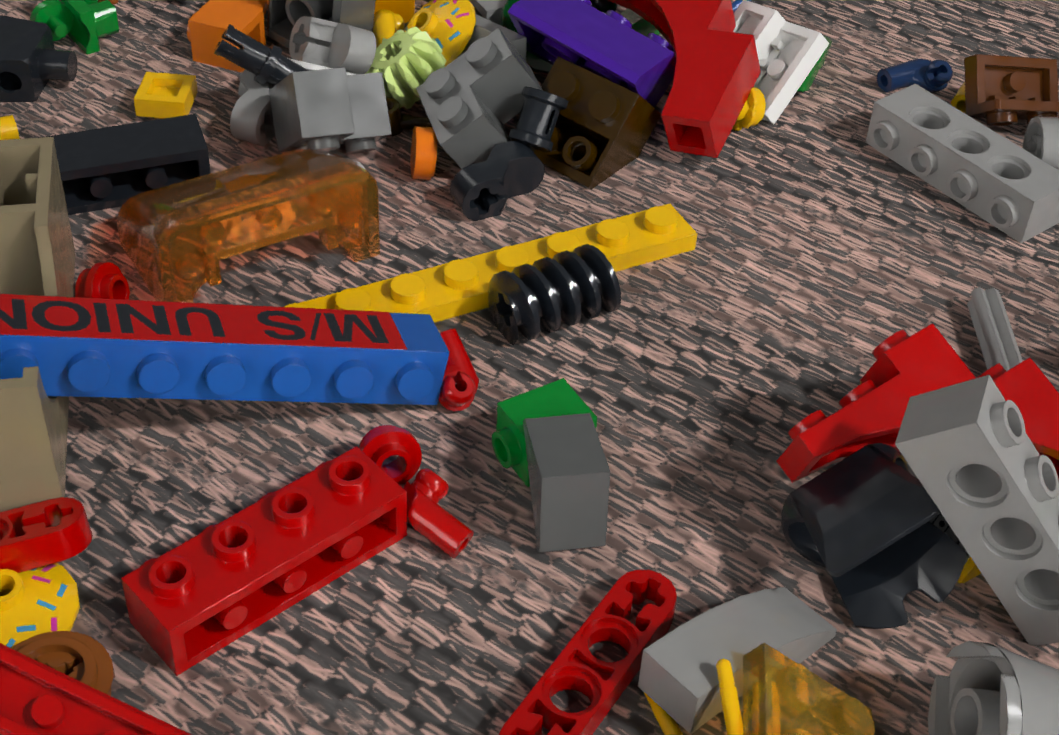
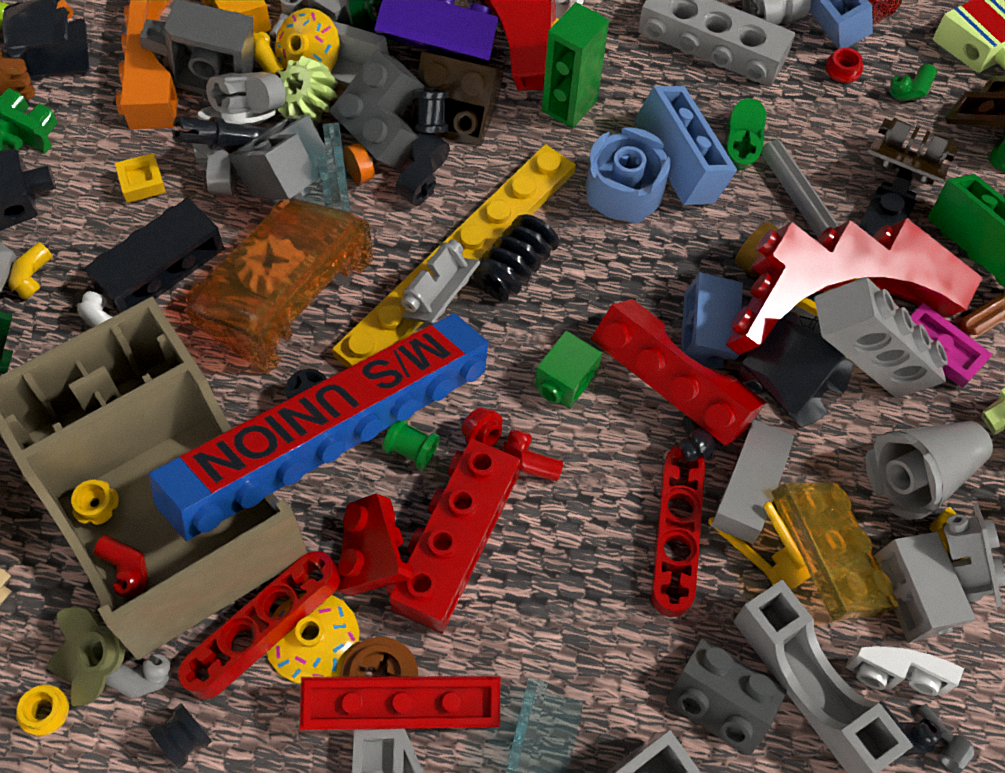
camera: 25 degrees left, 20 degrees up
(102, 281) = (218, 374): red plate -> none
(135, 536) = (371, 547): none -> red wing
(284, 438) = (411, 443): none -> green bush
(383, 134) = (333, 169): none -> clear light blue plate
(406, 284) = (428, 295): none -> light grey hinge
(460, 377) = (496, 354): red arm -> none
(567, 482) = (607, 404): dark grey slope -> none
(678, 568) = (698, 443): none -> black arm
(722, 525) = (707, 397): none -> red arch
(741, 117) = (574, 64): none -> green brick
(754, 256) = (627, 174): none -> medium blue brick
(756, 458) = (707, 317): none -> medium blue hinge
(853, 251) = (698, 160): none -> medium blue brick
(950, 270) = (745, 133): none -> green piece

